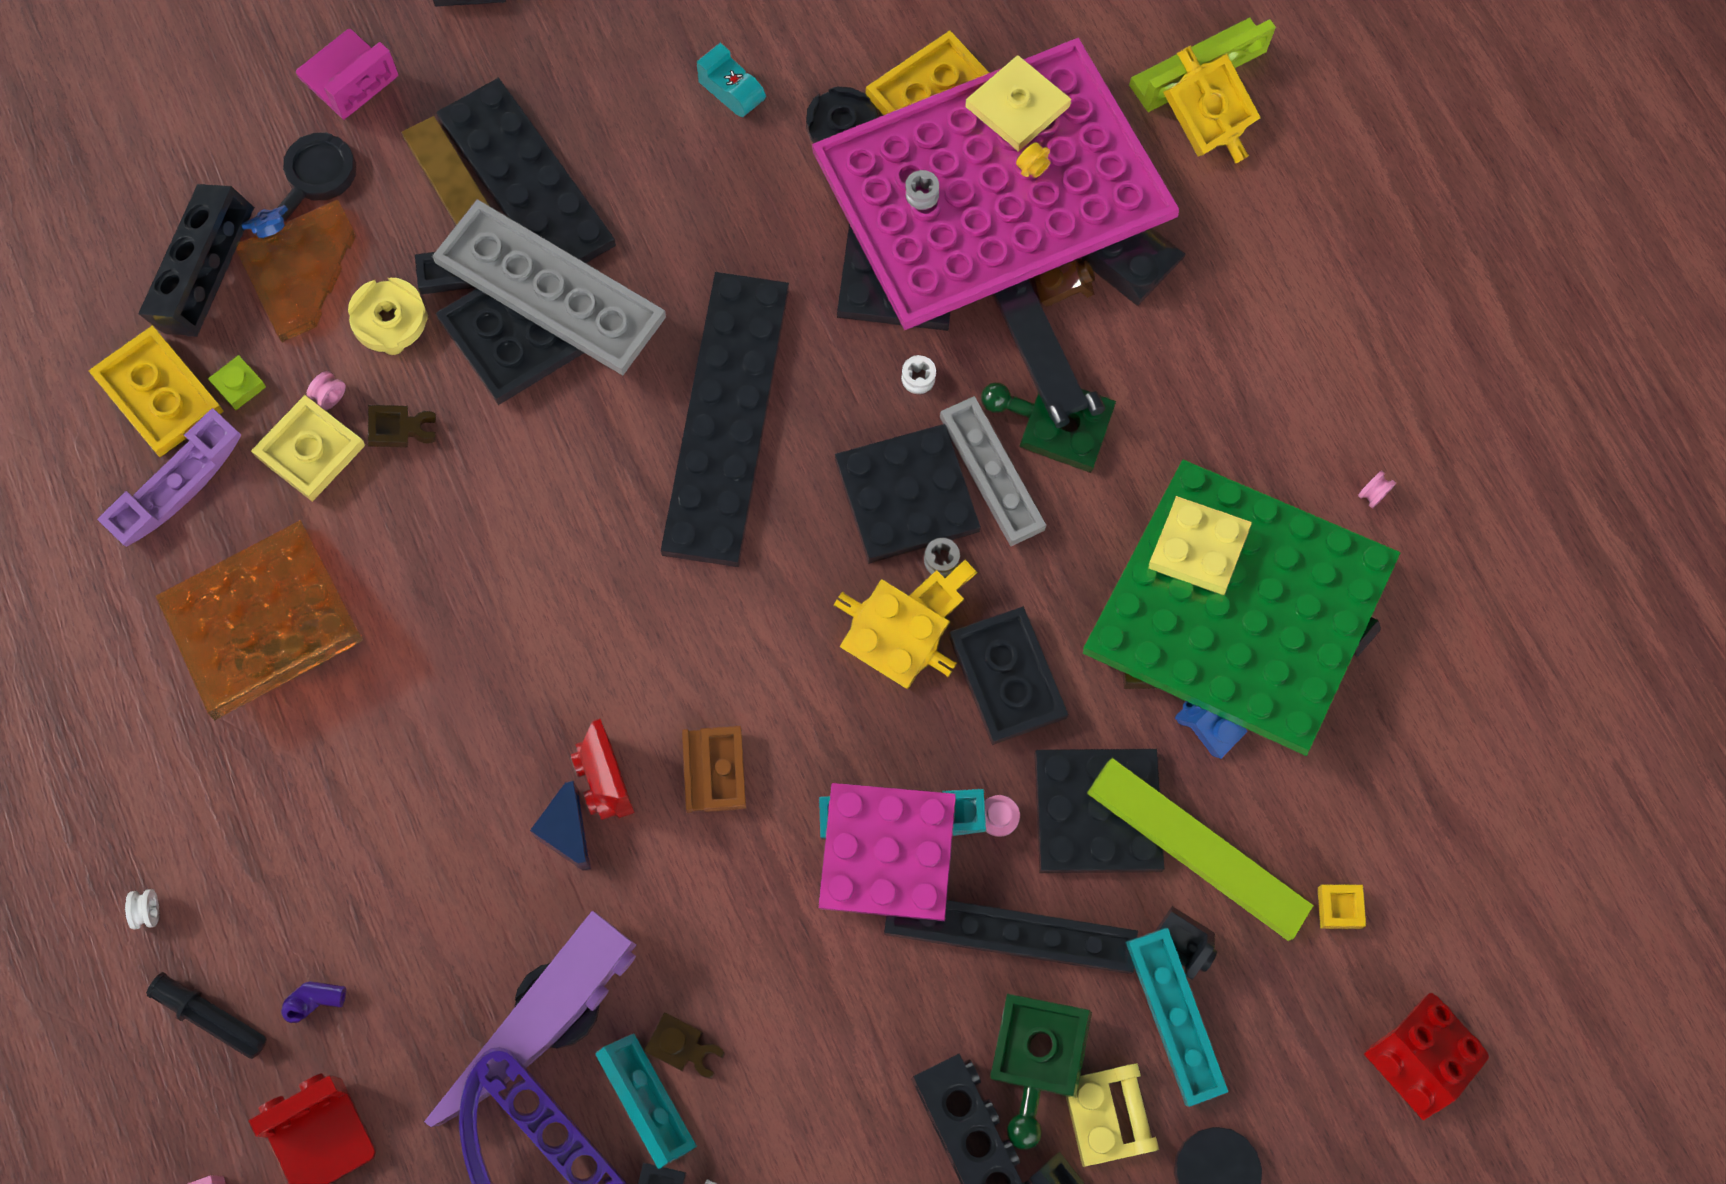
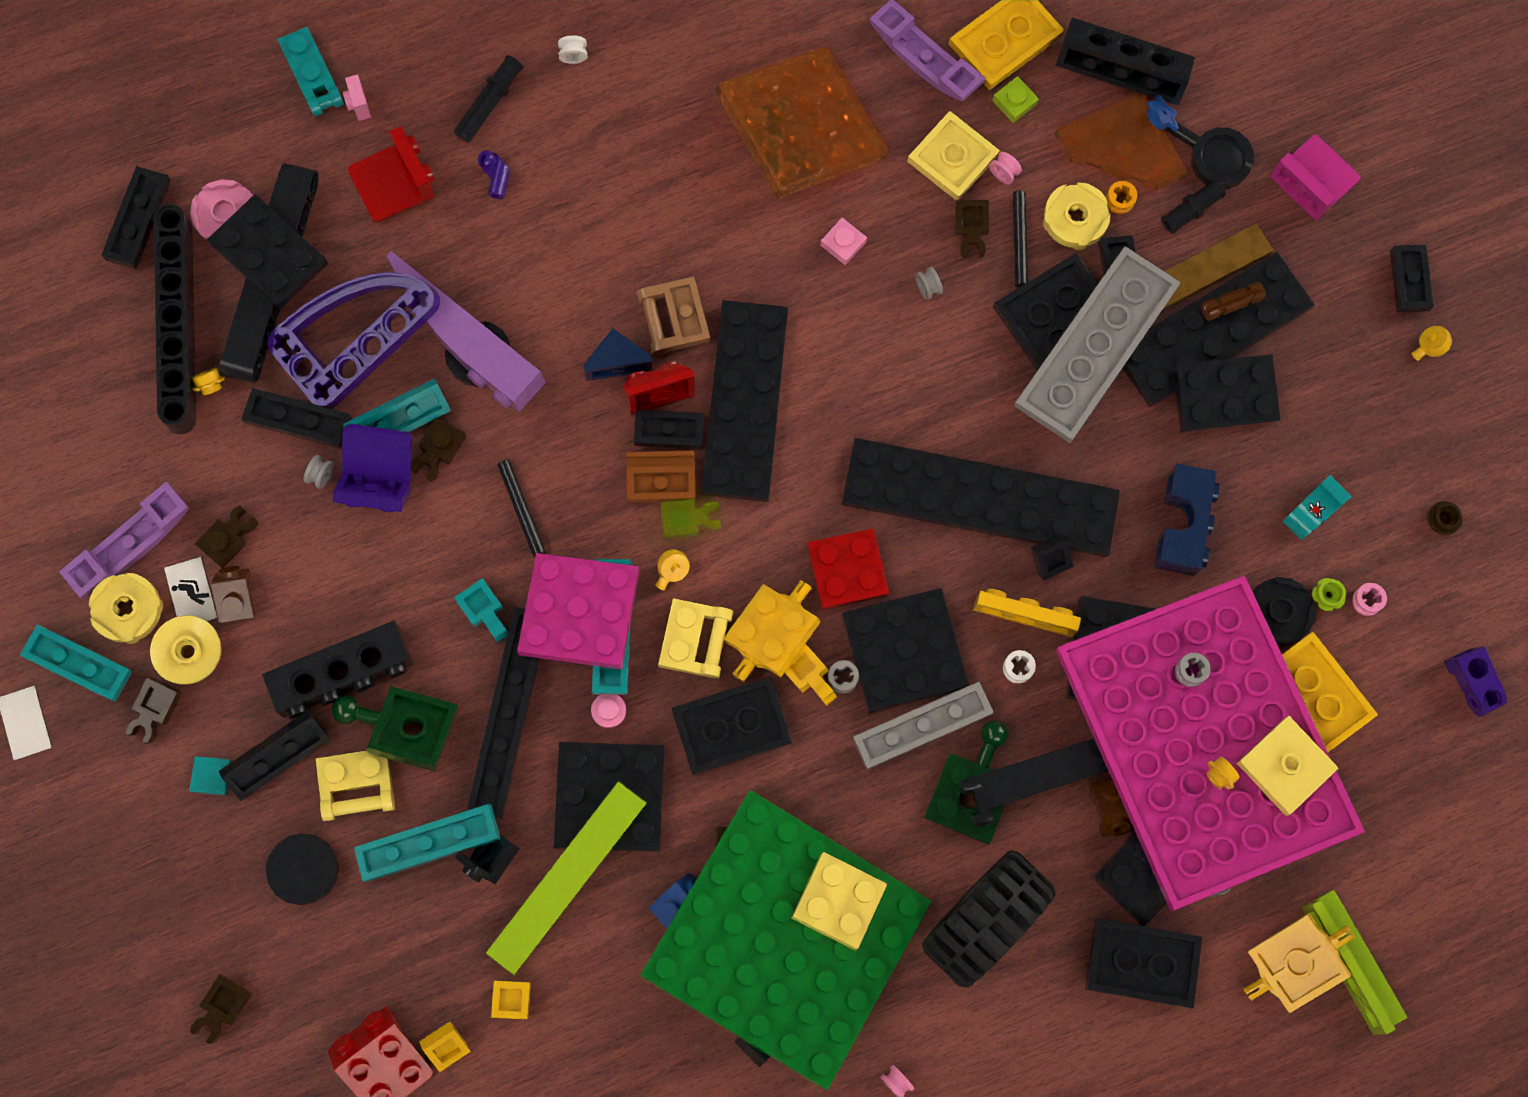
camera: 90 degrees right, 5 degrees up
(365, 259) = (1129, 190): none -> light orange bush
(379, 194) = (1193, 206): none -> black pin
(413, 376) = (1020, 238): none -> black bar
(413, 571) = (843, 241): none -> bright pink plate
(470, 472) = (929, 283): none -> light grey bush
(497, 151) = (1233, 301): none -> reddish brown axle
(505, 751) = (684, 313): none -> medium nougat plate
(602, 164) = (1226, 393): none -> black plate
(614, 677) = (744, 401): none -> black plate
(654, 762) = (668, 429): none -> black plate
(718, 1120) = (374, 468): none -> dark purple bracket
(720, 195) = (1193, 492): none -> dark blue arch
(756, 936) = (521, 507): none -> black bar
(765, 739) = (682, 518): none -> clear neon green plate
(794, 339) = (1052, 557): none -> black plate
(816, 556) = (847, 569): none -> red plate
(822, 65) = (1333, 586): none -> lime plate
(825, 750) = (672, 567): none -> yellow piece
(831, 46) = (1361, 607): none -> bright pink bush
(858, 364) = (1027, 612): none -> yellow plate
(883, 975) = (481, 606): none -> teal plate
(902, 734) = (684, 634): none -> light yellow plate
(1211, 384) = (989, 919): none -> black tyre
(1224, 253) = (1144, 963): none -> black plate
(1403, 978) = (444, 1046): none -> yellow plate

